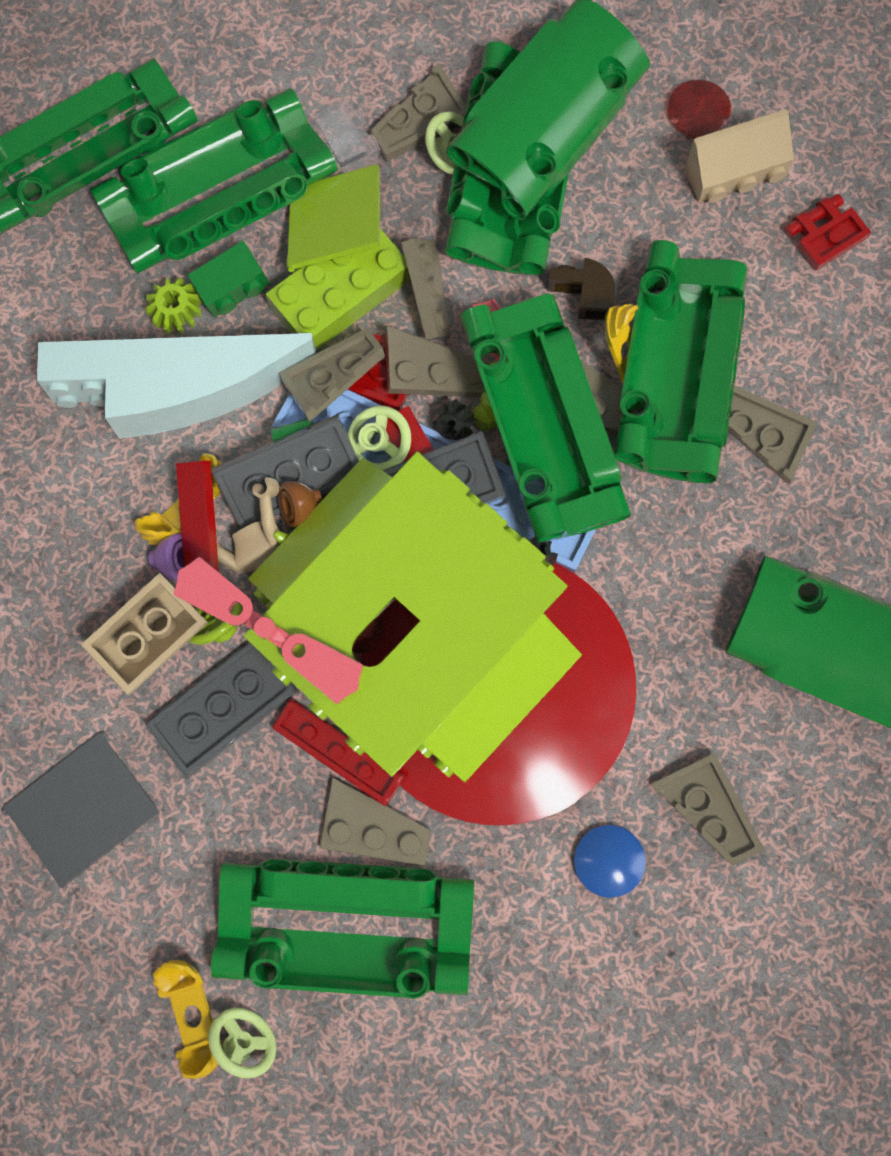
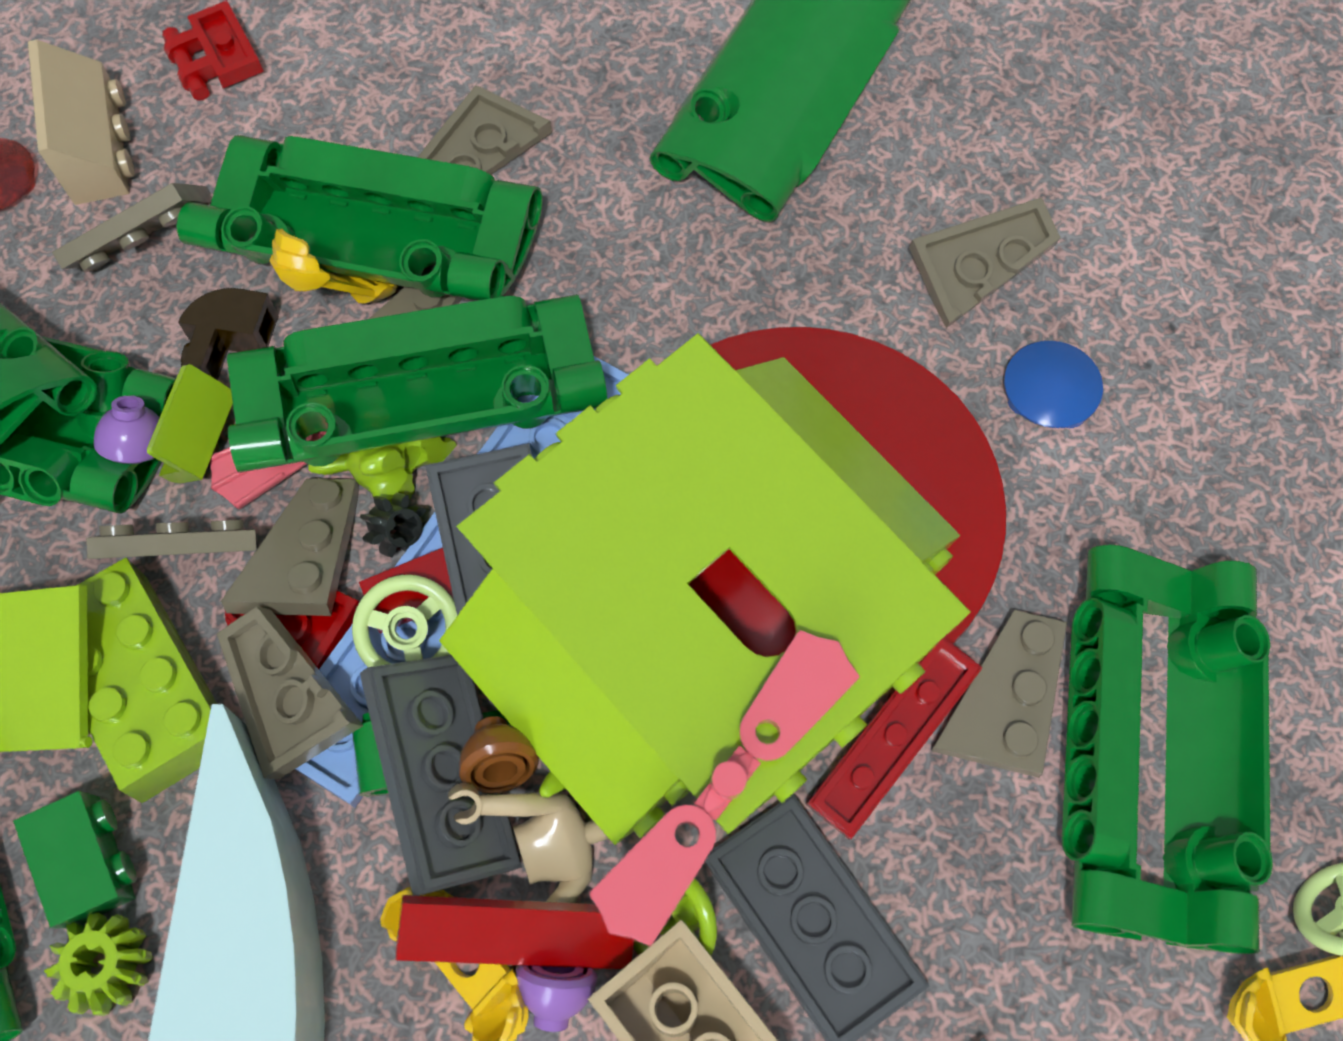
camera: 85 degrees left, 10 degrees down
(495, 247) = (125, 431): none -> medium lavender brick
(509, 281) = (190, 425): none -> lime panel
(656, 212) = (129, 227): none -> dark tan wing

